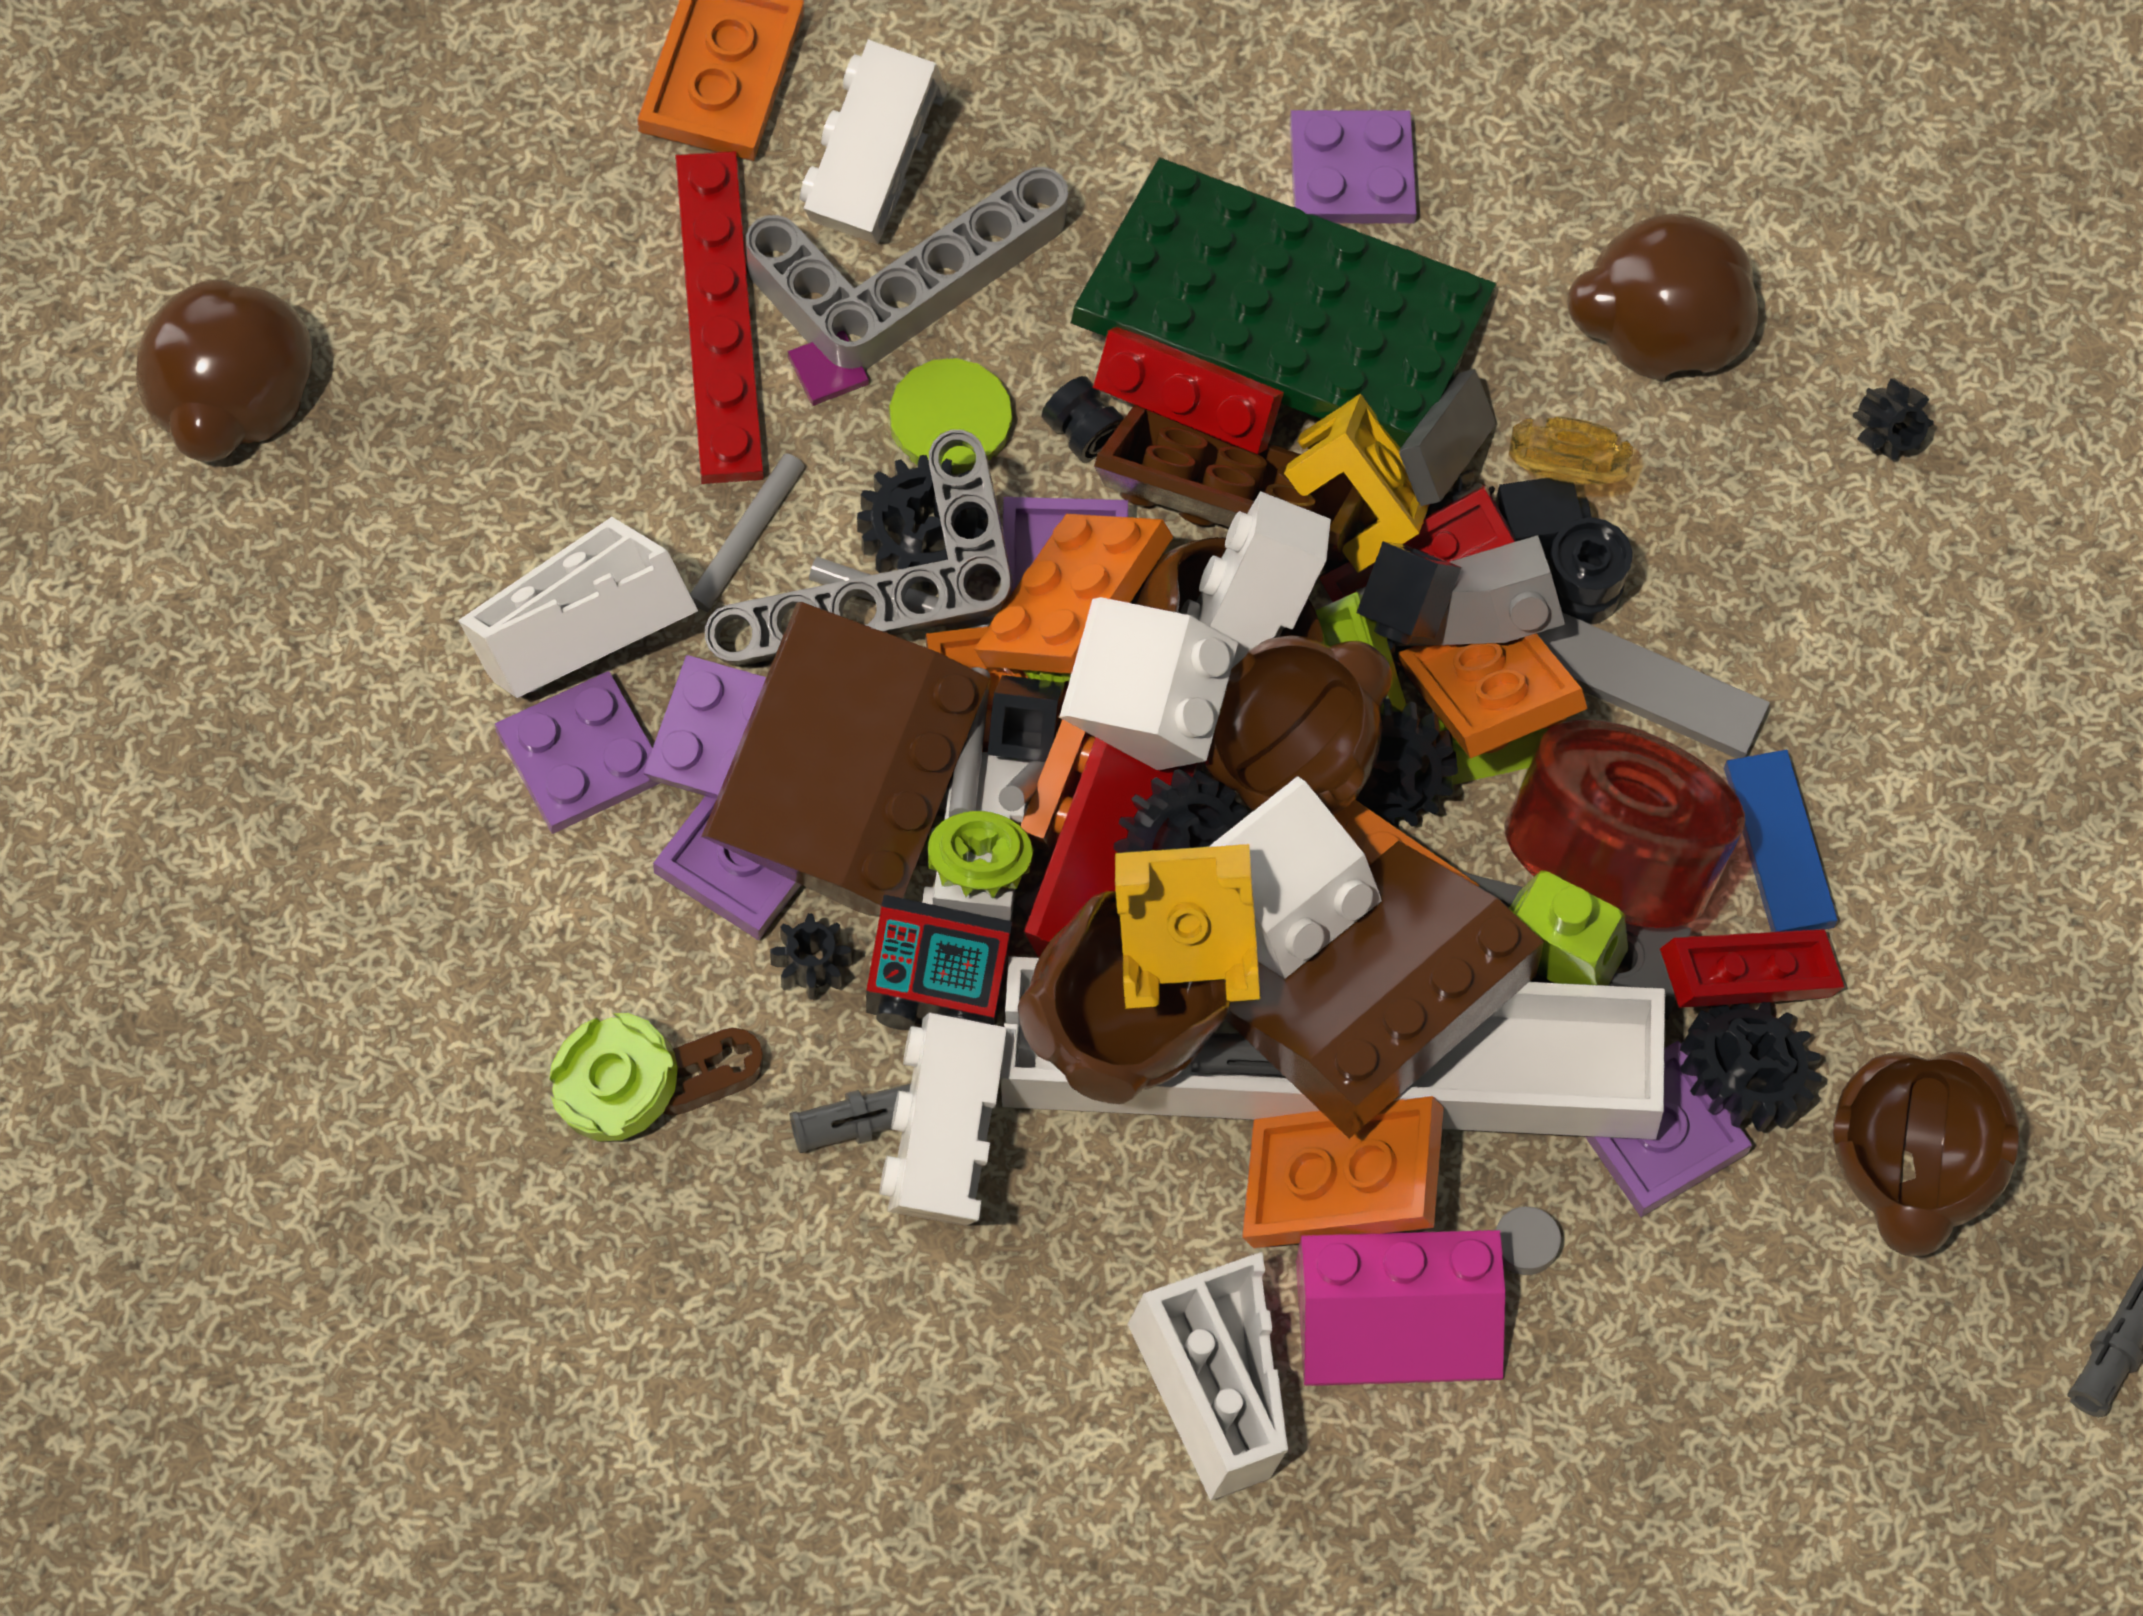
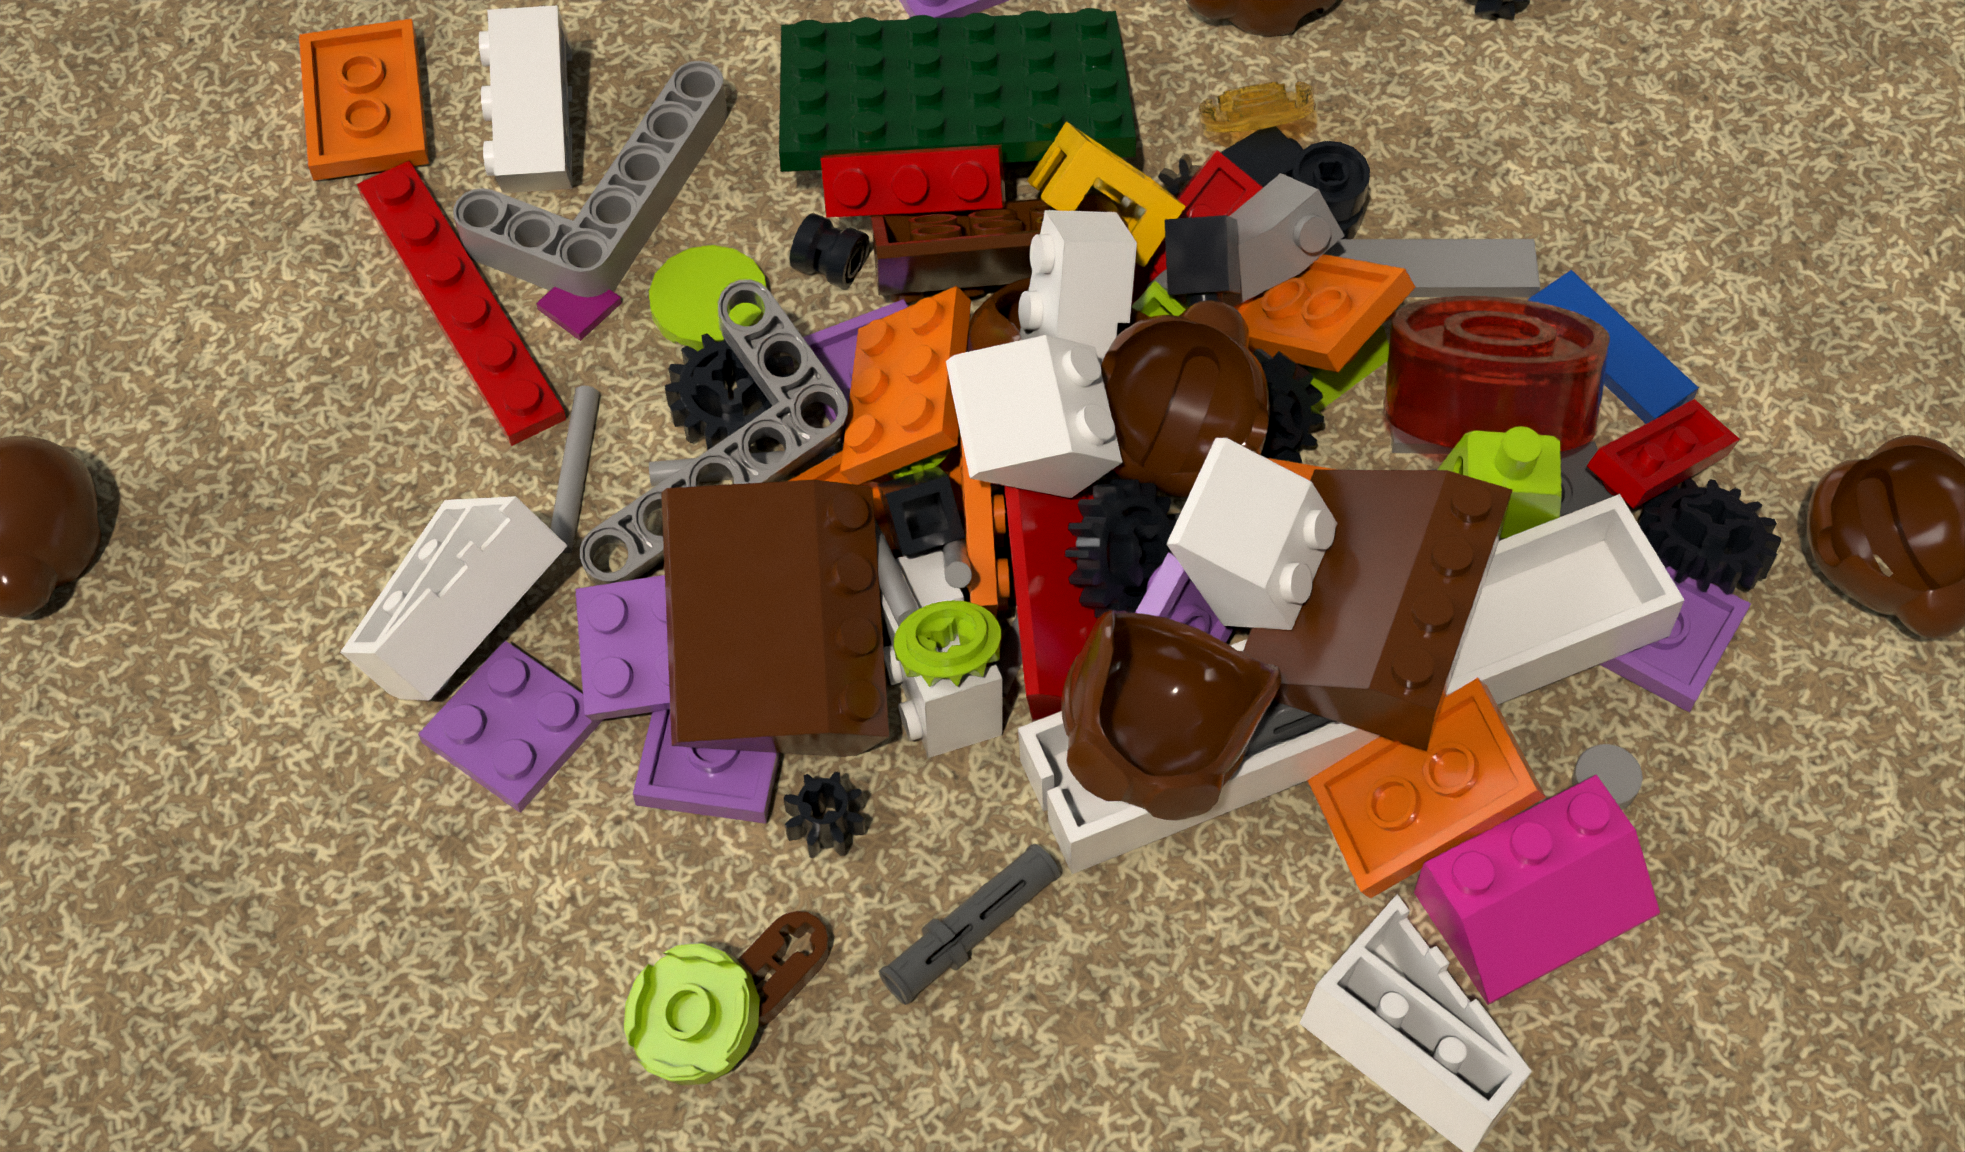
camera: 20 degrees left, 5 degrees down
(936, 964) = (954, 770): slope -> none
(944, 1119) = (1037, 908): white wedge -> none
(1187, 921) = (1193, 607): yellow panel -> none
(1447, 438) = (1155, 134): dark grey tile -> none

